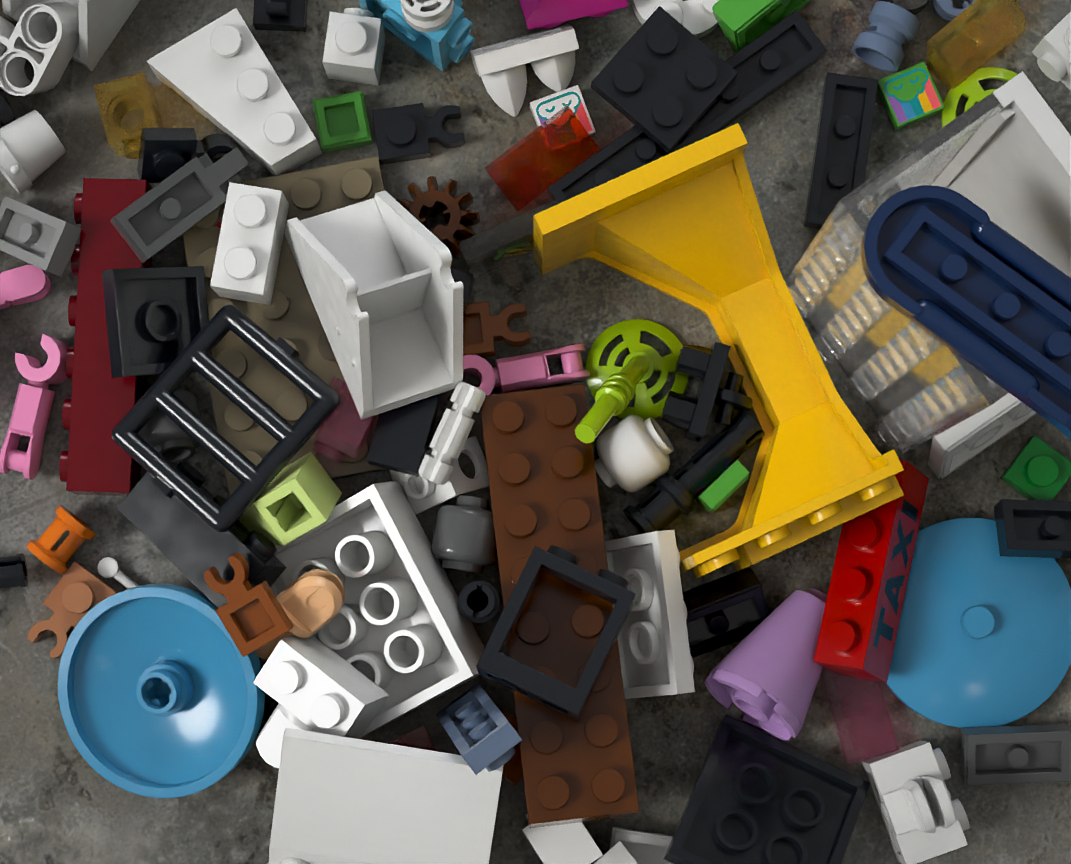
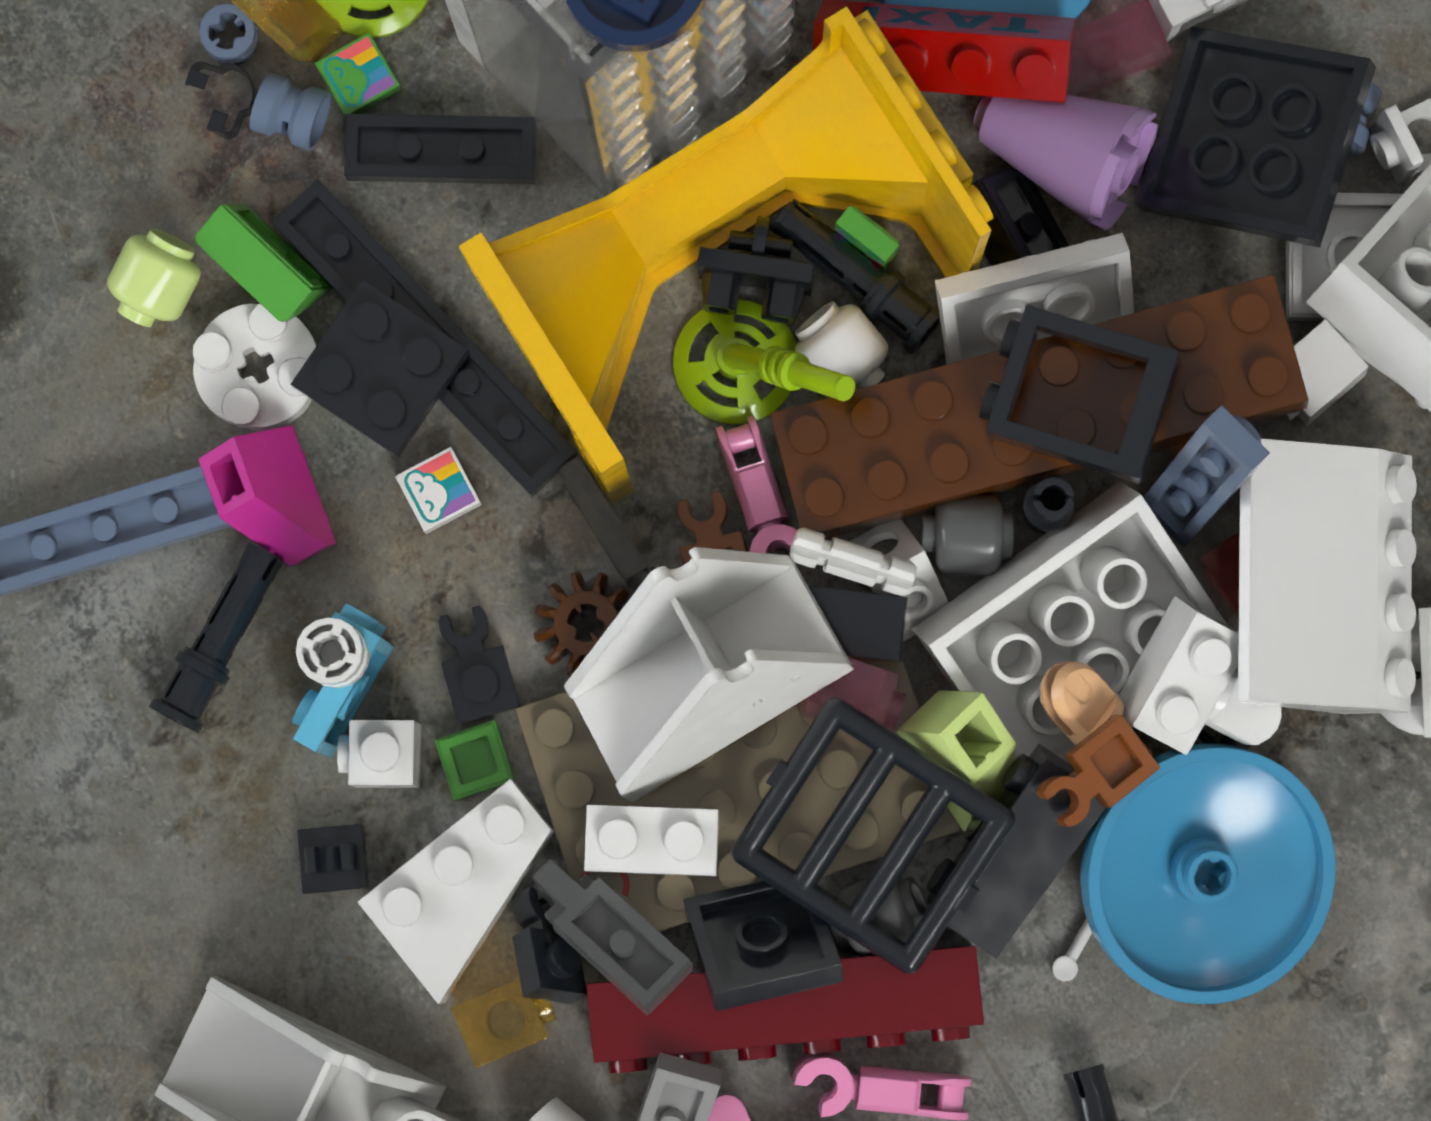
camera: 90 degrees left, 0 degrees up
(57, 558) = (1041, 1028): orange bush -> none
(70, 600) = (1115, 1001): nougat plate -> none
(504, 67) = (375, 568): white tile -> none
(542, 158) = (493, 506): clear red plate -> none

